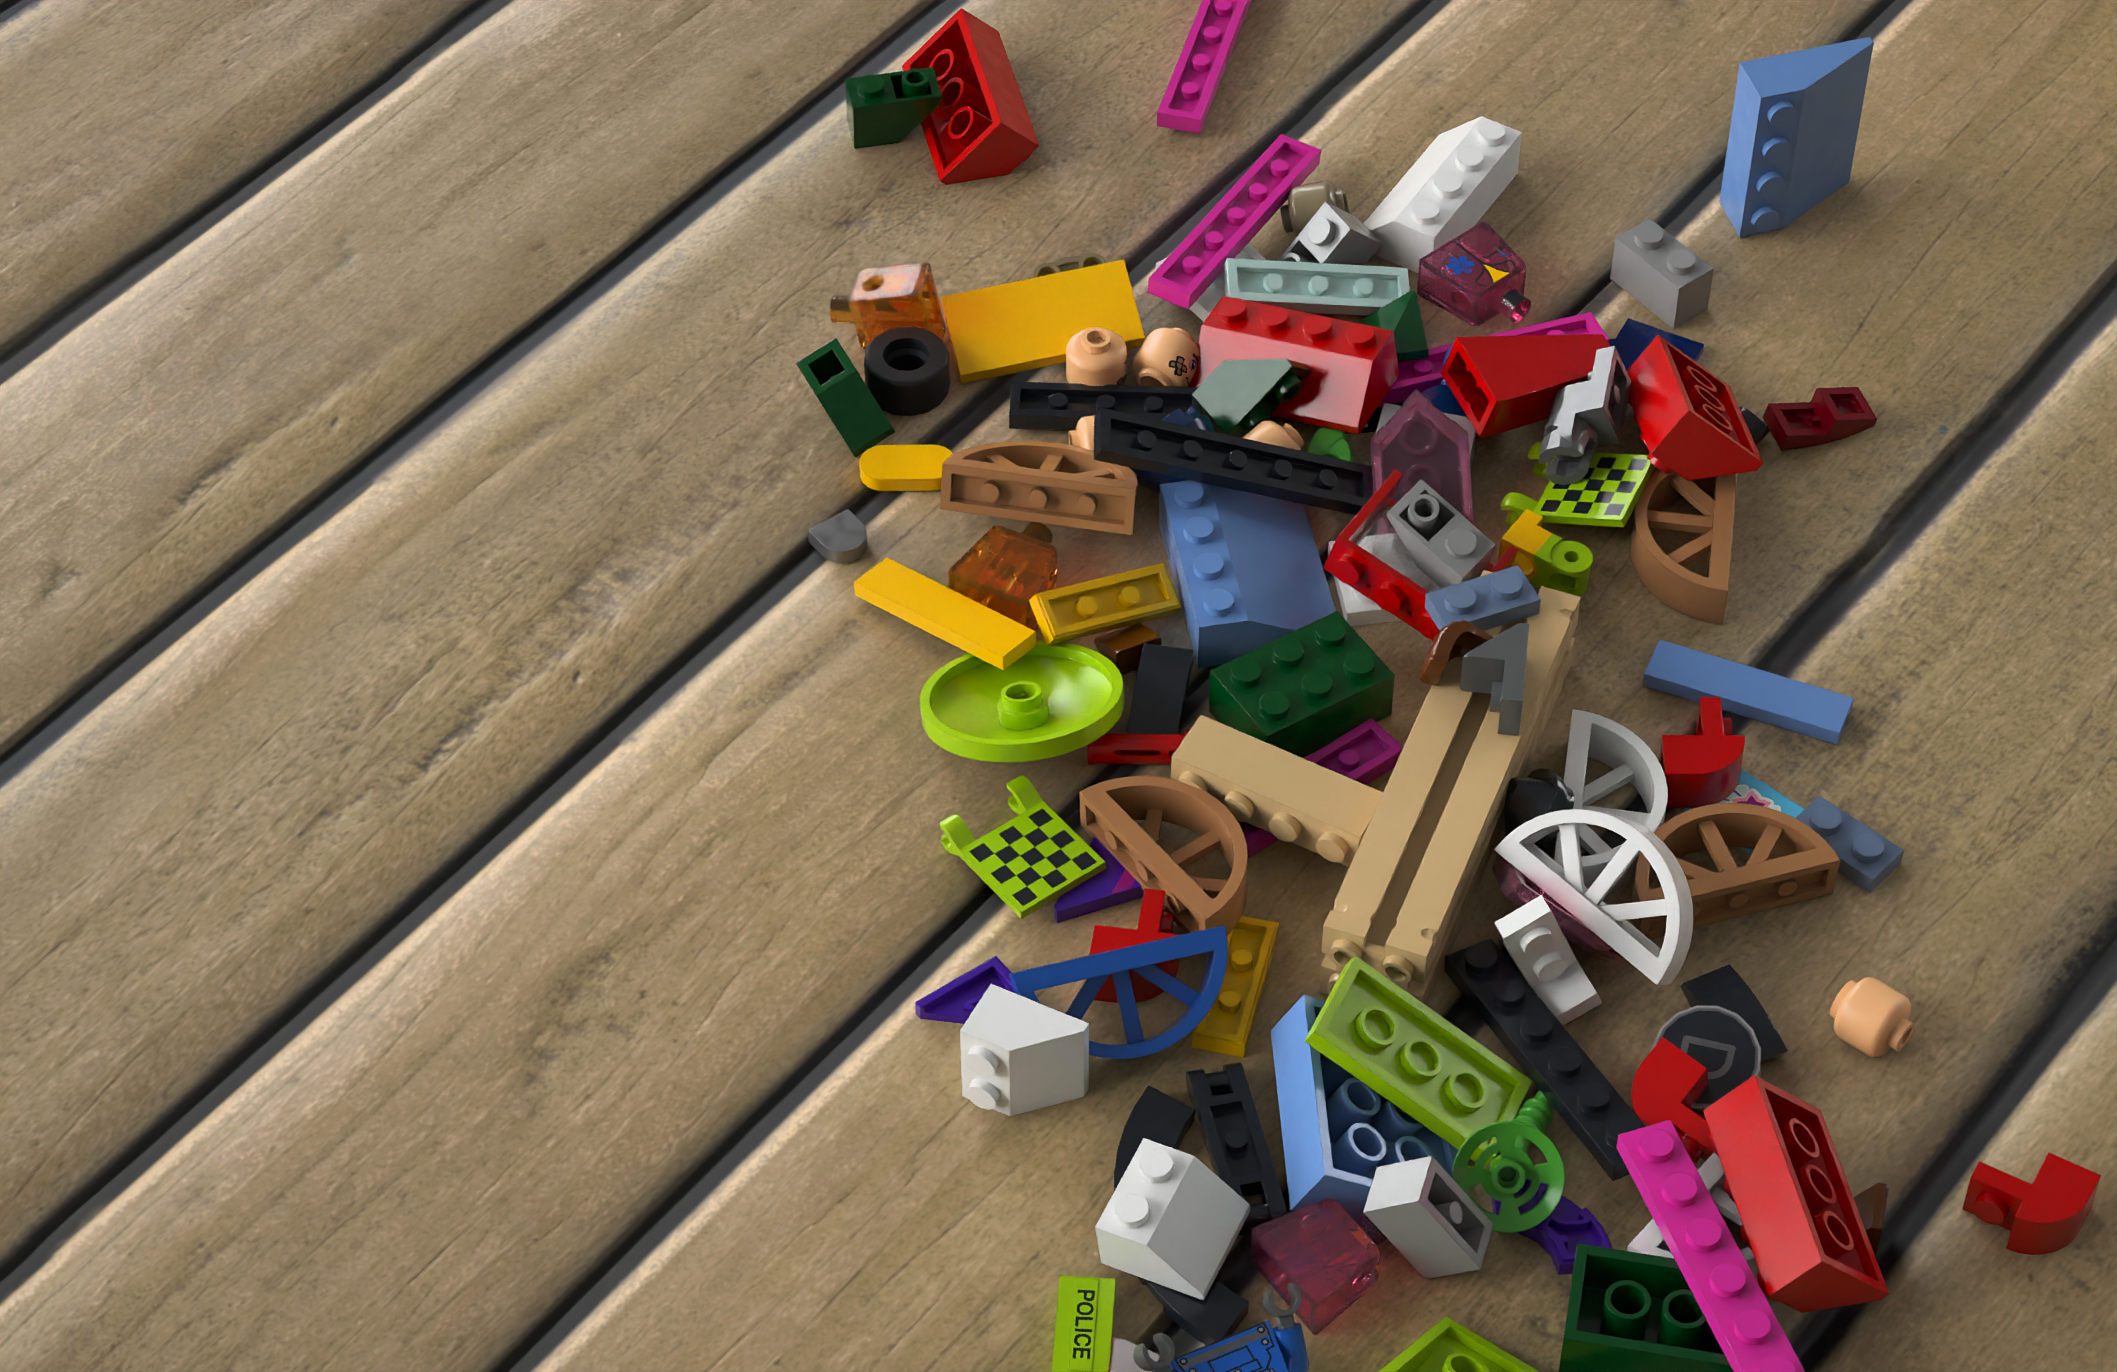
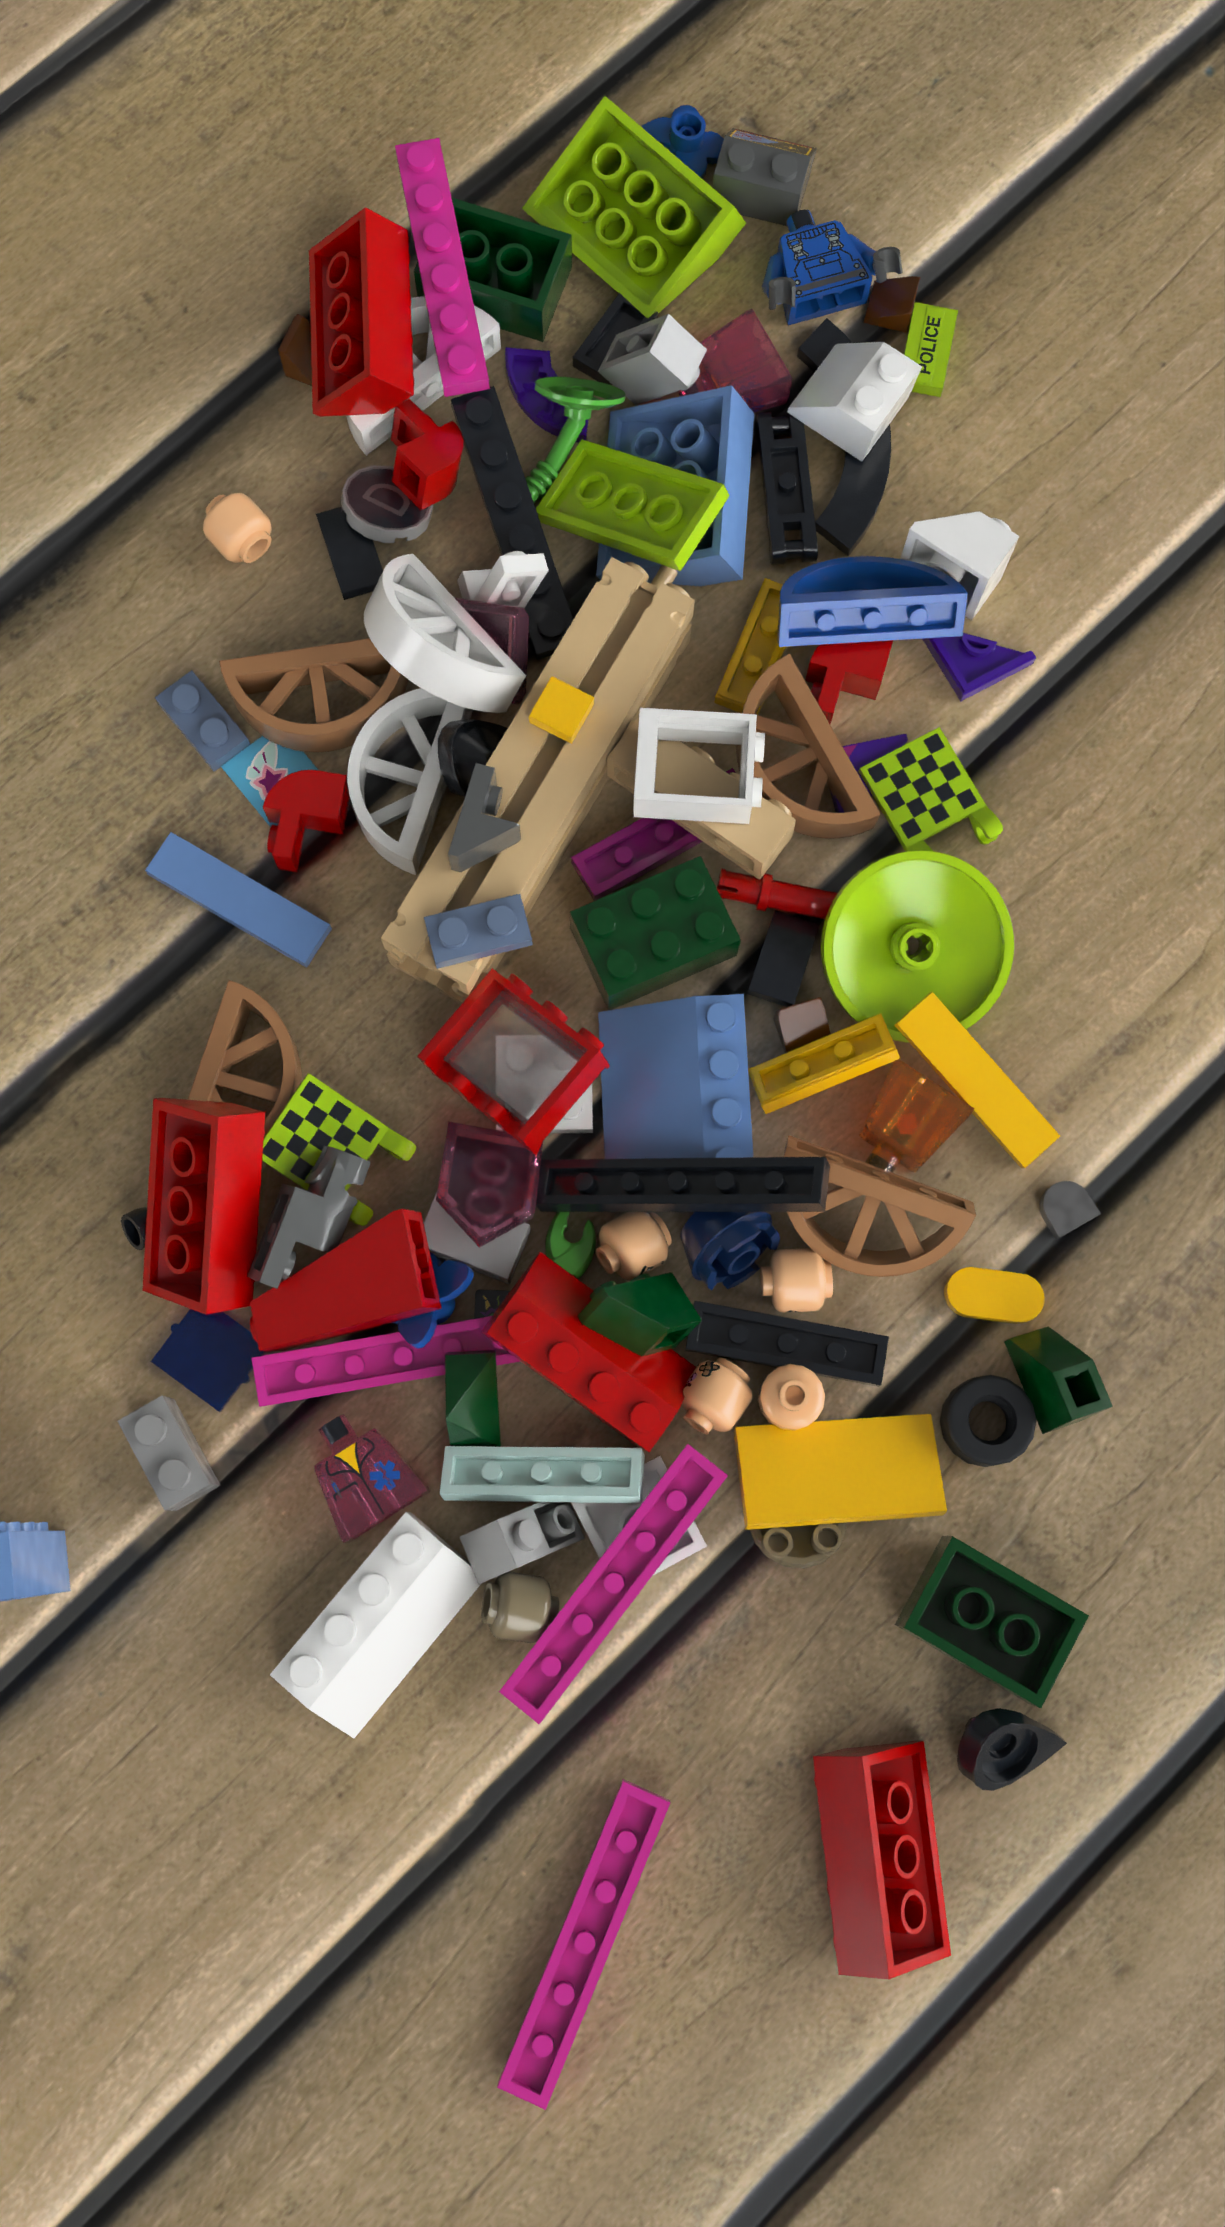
camera: 175 degrees left, 30 degrees up
(872, 177) = (1004, 1747): none -> black piece
(889, 105) = (976, 1855): dark green slope -> none
(889, 224) = (992, 1620): none -> dark green brick
(890, 299) = (1001, 1498): clear orange torso -> none
(1285, 734) = (702, 728): none -> white window
(1440, 537) = (493, 1036): light grey slope -> none
(1445, 795) = (561, 709): none -> yellow tile
(1451, 642) = (525, 868): reddish brown hair -> none
(1485, 1295) = (617, 319): none -> black tile
(1548, 558) = (378, 1066): leg -> none
(1827, 418) = (64, 1236): dark red slope -> none
(2038, 1214) = (157, 336): red brick -> none

